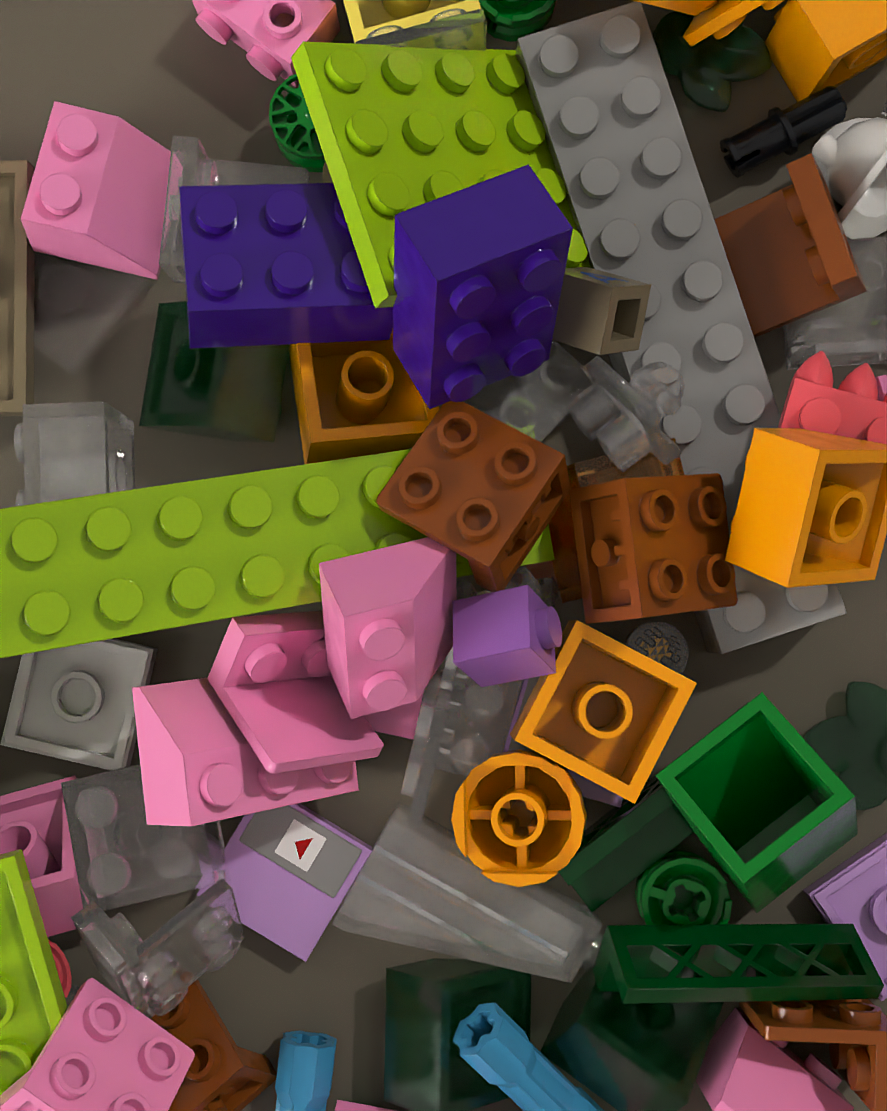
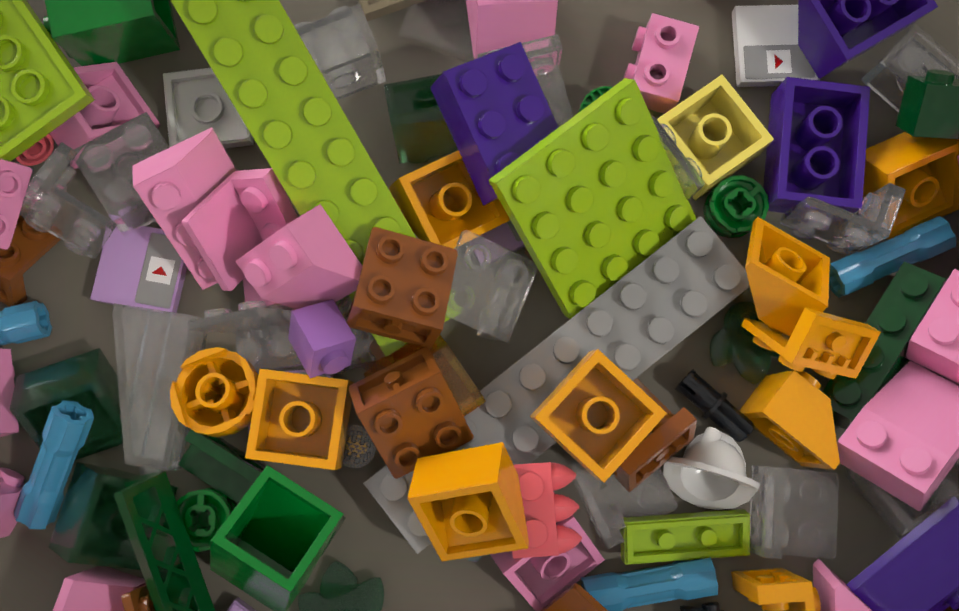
camera: 65 degrees right, 5 degrees down
(478, 285) = (523, 234): dark purple brick -> none
(601, 311) = (546, 321): dark tan brick -> none
(627, 414) = (487, 362): clear hips -> none
(759, 285) = (598, 415): none -> light orange brick

